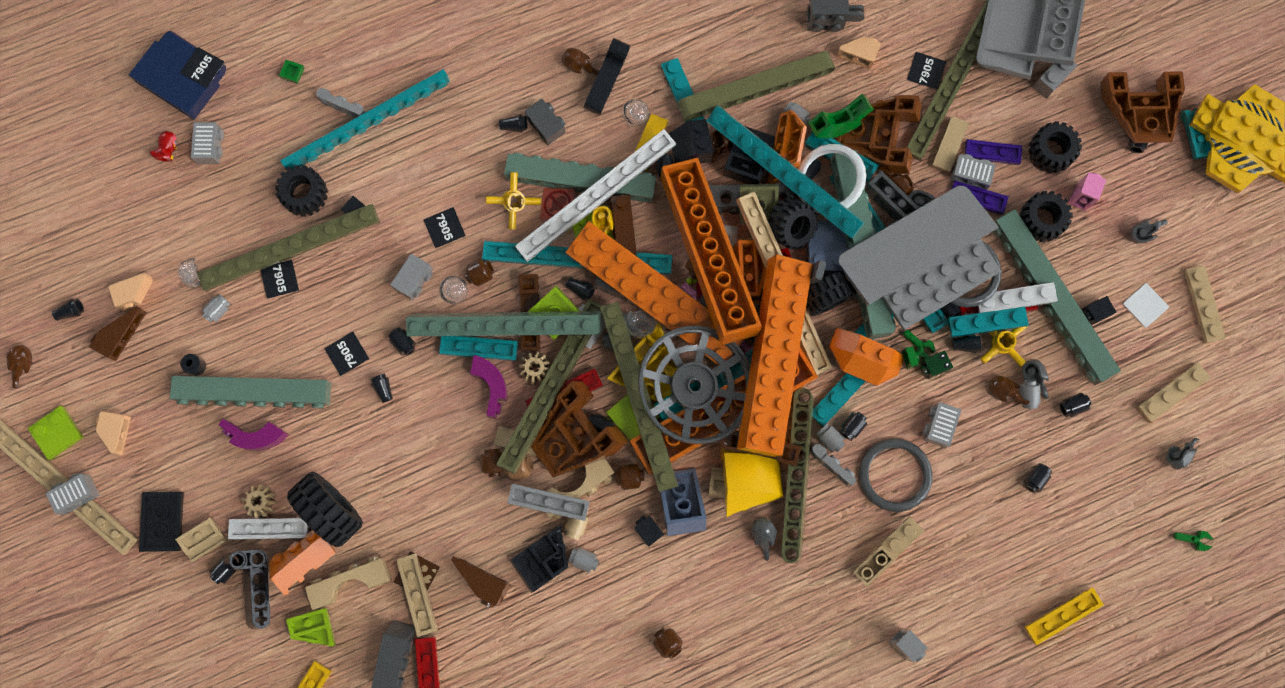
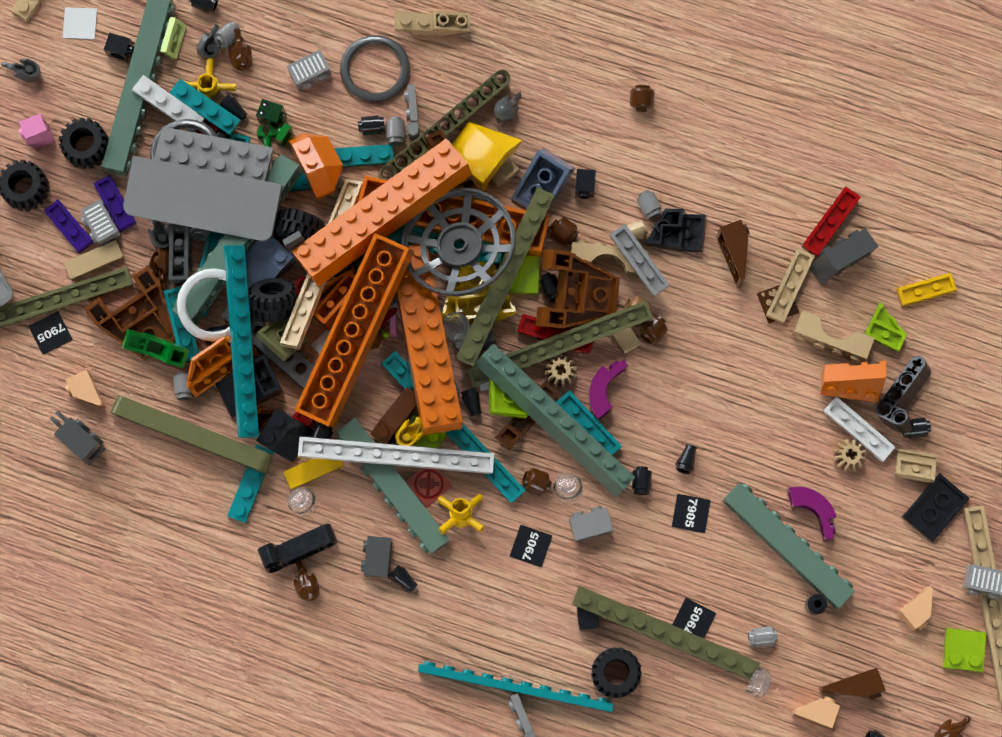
camera: 135 degrees left, 0 degrees up
(324, 509) = (805, 395): black tyre -> none
(1067, 353) = (173, 38): none -> yellowish green tile

